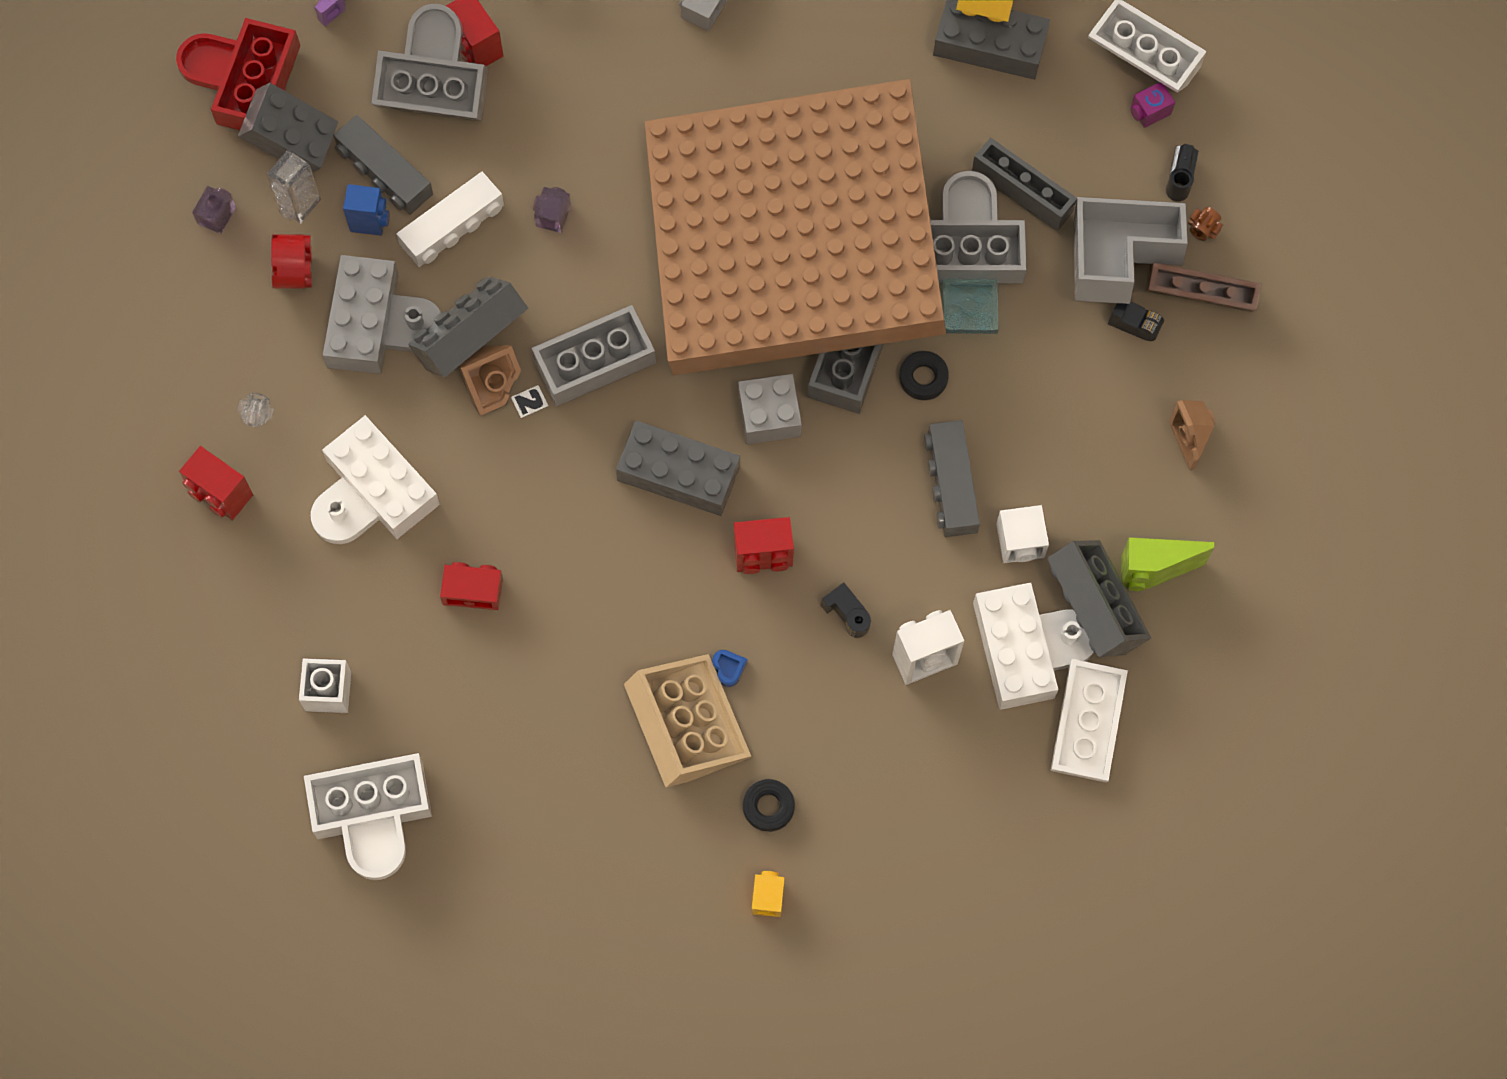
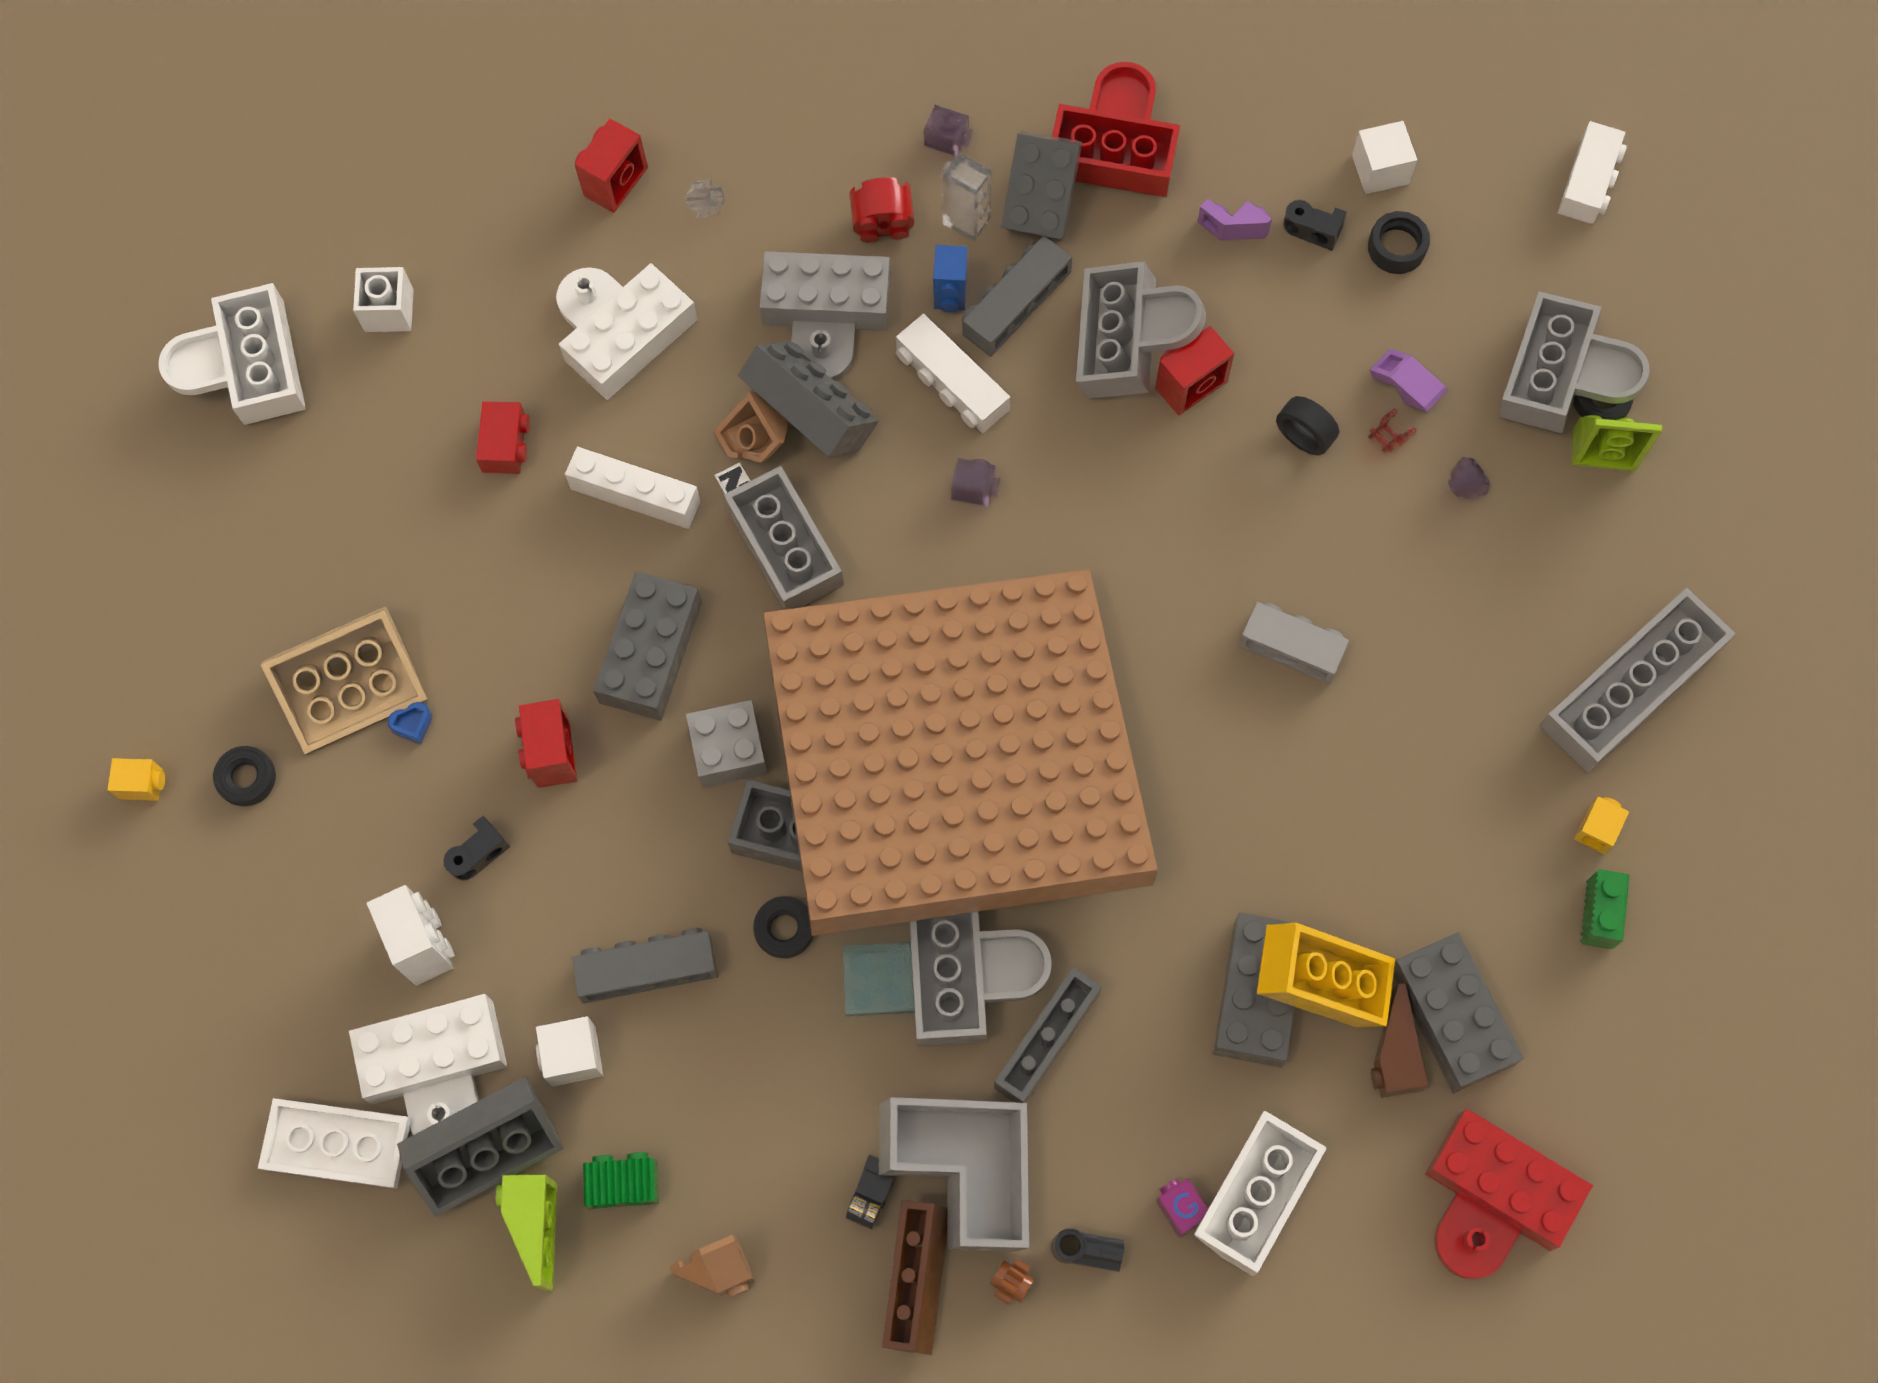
camera: 90 degrees right, 0 degrees up
(531, 477) = (633, 487): none -> white brick
(1125, 501) = (620, 1182): none -> green brick

